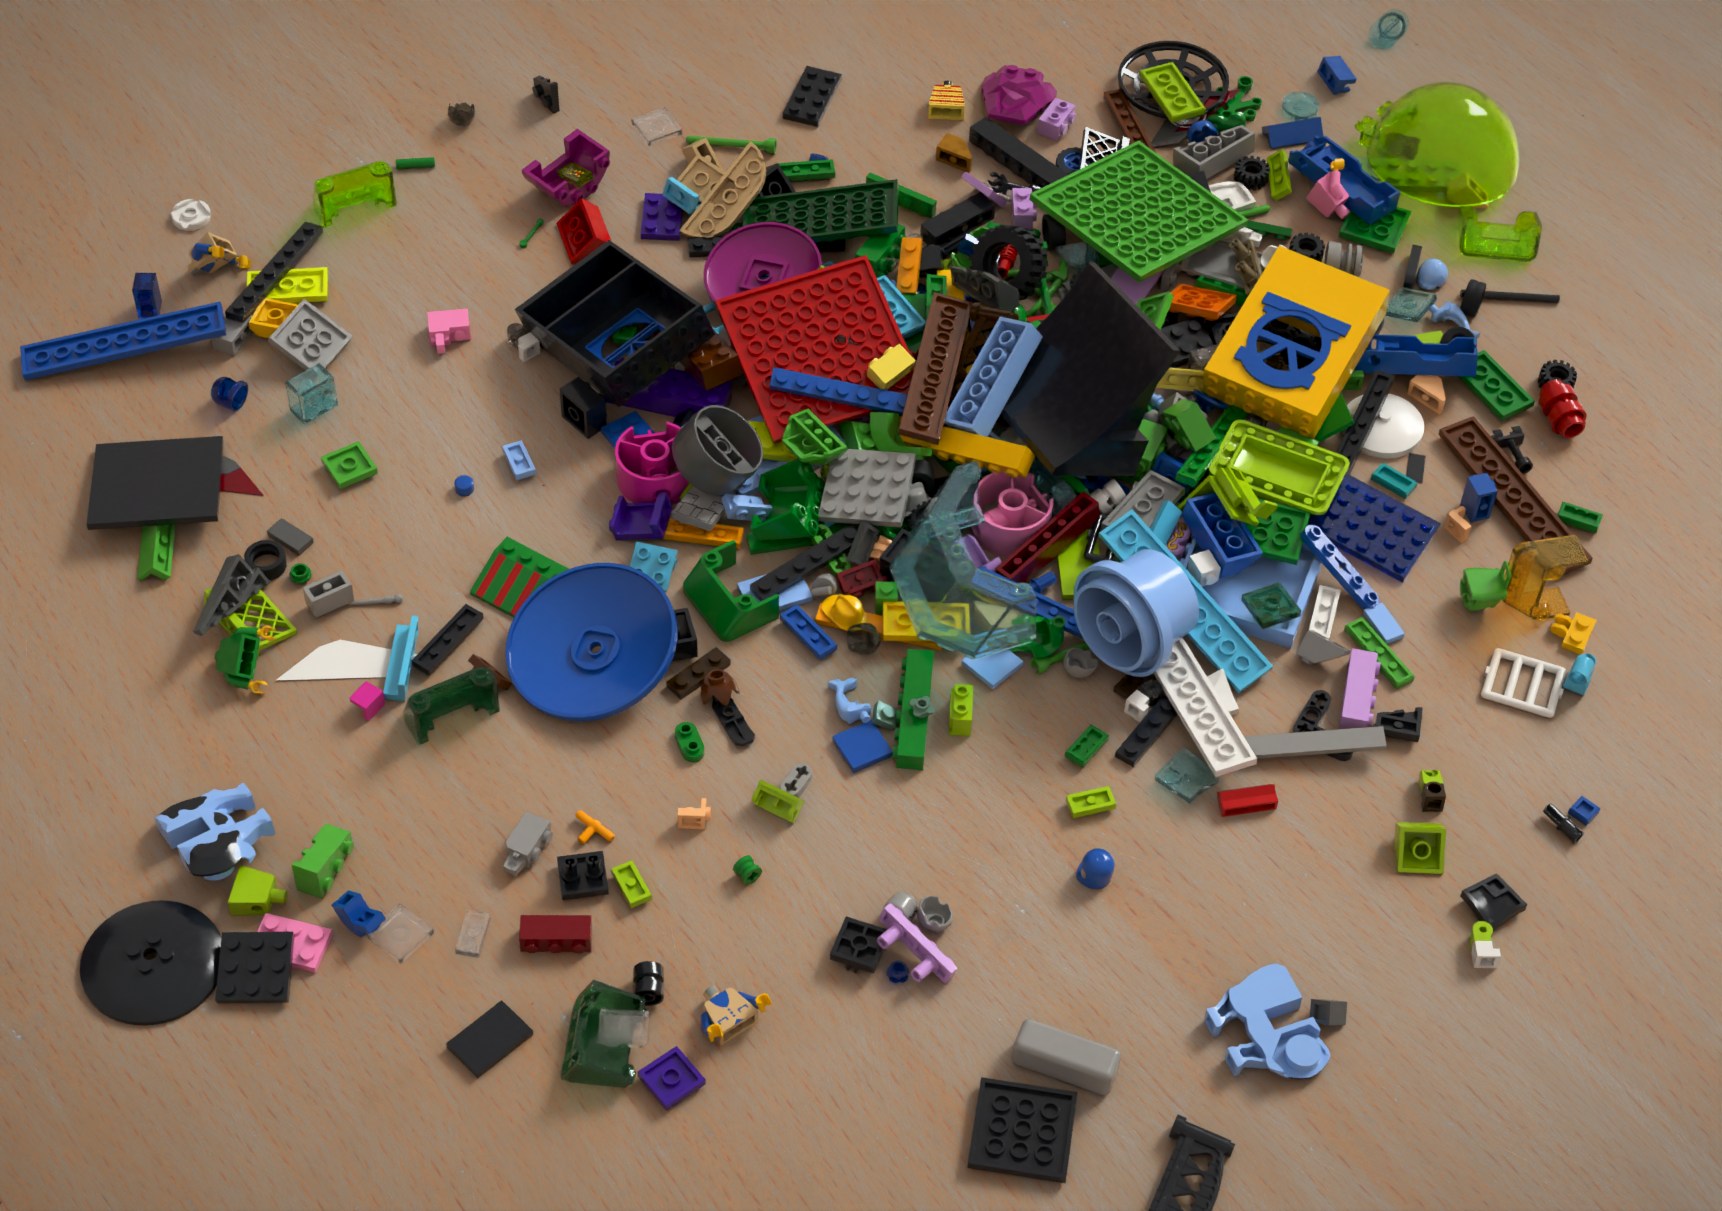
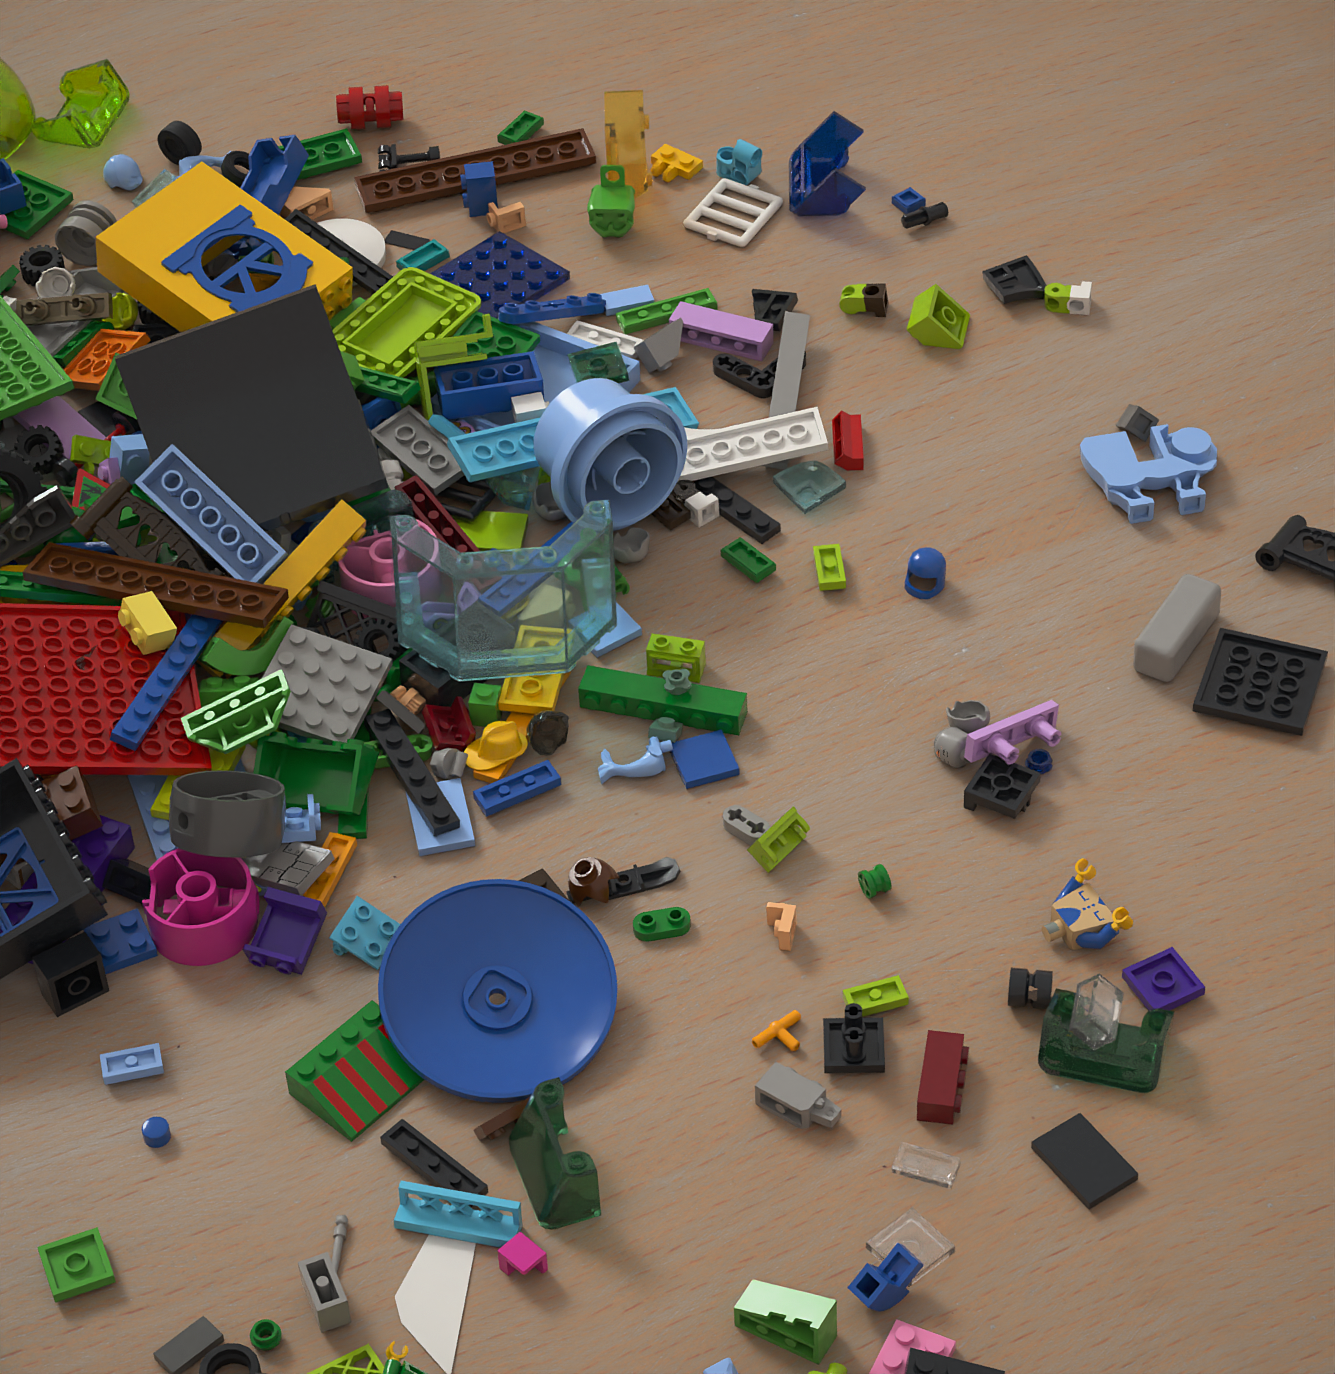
camera: 75 degrees left, 5 degrees down
(721, 611) = (424, 873): green windscreen -> none
(1412, 266) = (119, 189): black beam -> none
(1519, 296) = (180, 115): black piece -> none
(1558, 370) = (316, 108): black tyre -> none
(1590, 735) = (814, 176): none -> clear blue windscreen

